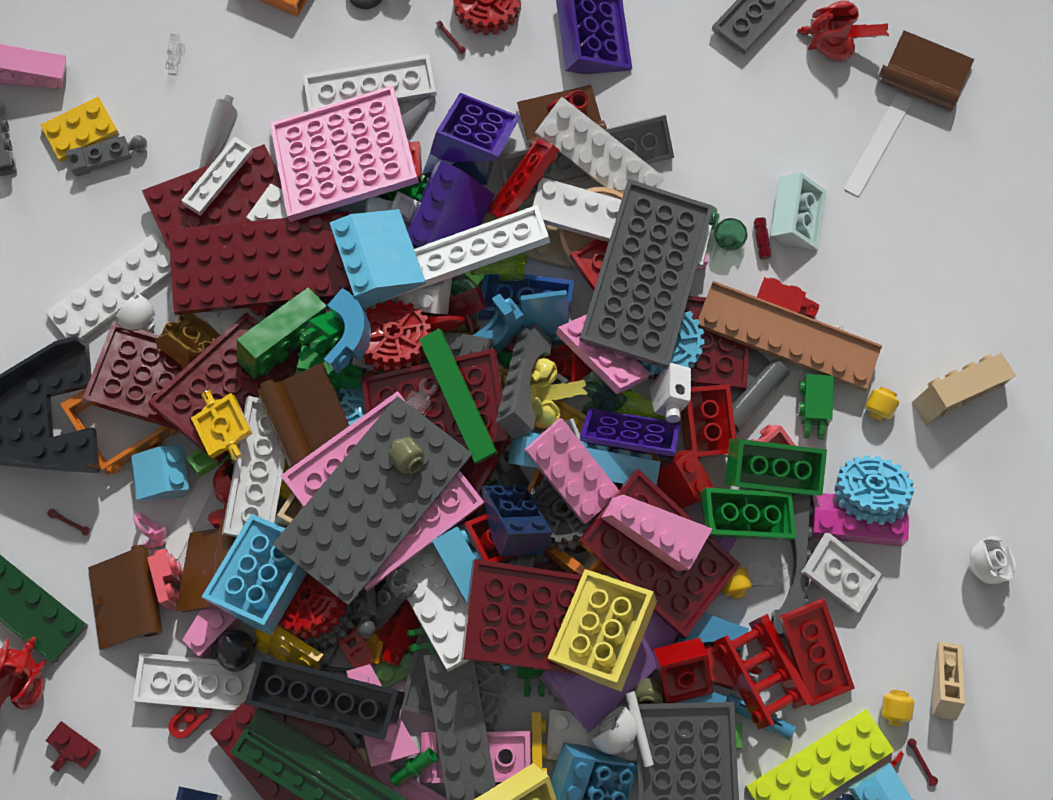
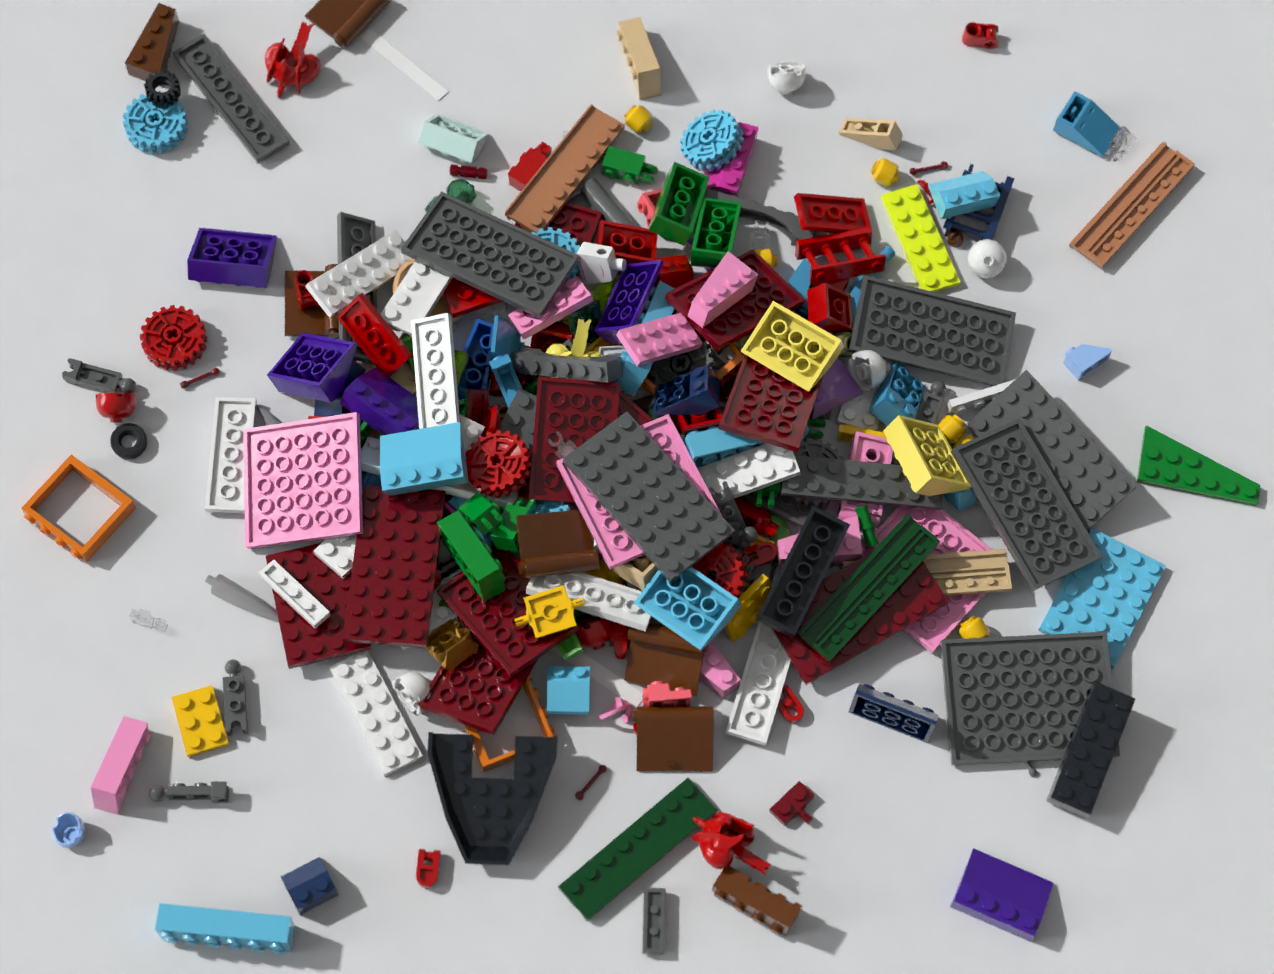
camera: 80 degrees left, 5 degrees down
(234, 650) = (740, 652): black cap -> none
(356, 332) = (483, 483): dark azure arch -> none
(405, 205) = (370, 439): white tile -> none
(406, 455) = (621, 455): olive head -> none
(458, 396) = (571, 414): green tile -> none
(641, 735) = (879, 349): white bar -> none
(841, 573) = (772, 182): white plate -> none

